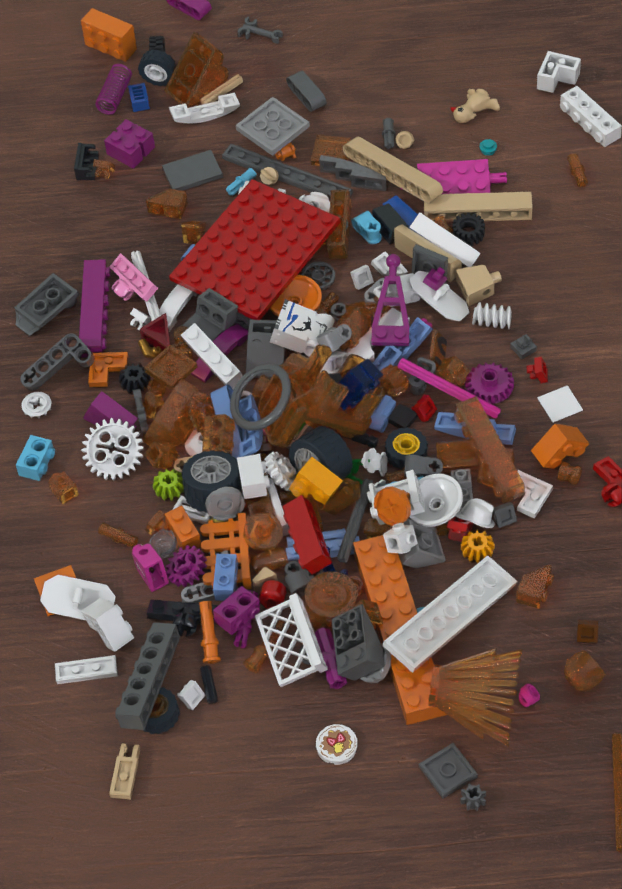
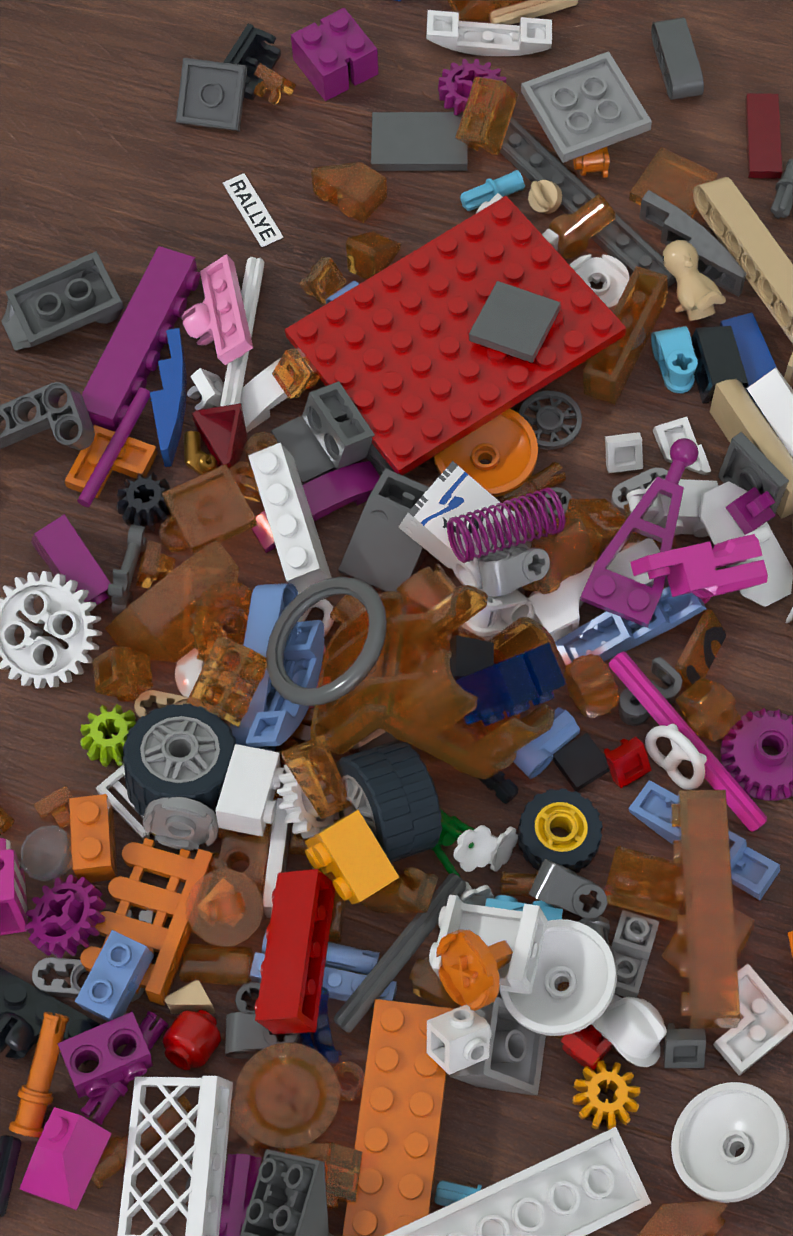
camera: 20 degrees right, 10 degrees up
(74, 182) = (211, 94): none -> dark grey tile
(107, 358) = (114, 447): none -> magenta bar
(121, 231) = (253, 210): none -> white sticker
(122, 328) = (170, 402): none -> blue slope
(175, 250) = (323, 280): none -> clear orange tile
(183, 293) = (294, 374): none -> clear orange tile
(208, 137) = (457, 82): none -> magenta gear
(223, 146) = (487, 115): none -> clear orange hinge
(237, 659) = (65, 1158): none -> dark pink slope
(281, 452) = (302, 761): none -> clear orange slope
(284, 232) = (514, 321): none -> dark grey tile
(295, 181) = (581, 225): none -> clear orange piece
(312, 329) = (541, 516): none -> magenta piece
(364, 193) = (694, 289): none -> tan animal
(365, 113) = (763, 135): none -> dark red tile
(425, 309) = (694, 566): none -> dark pink plate
(447, 394) = (681, 750): none -> white piece
(541, 541) = (713, 1131): none -> white dish

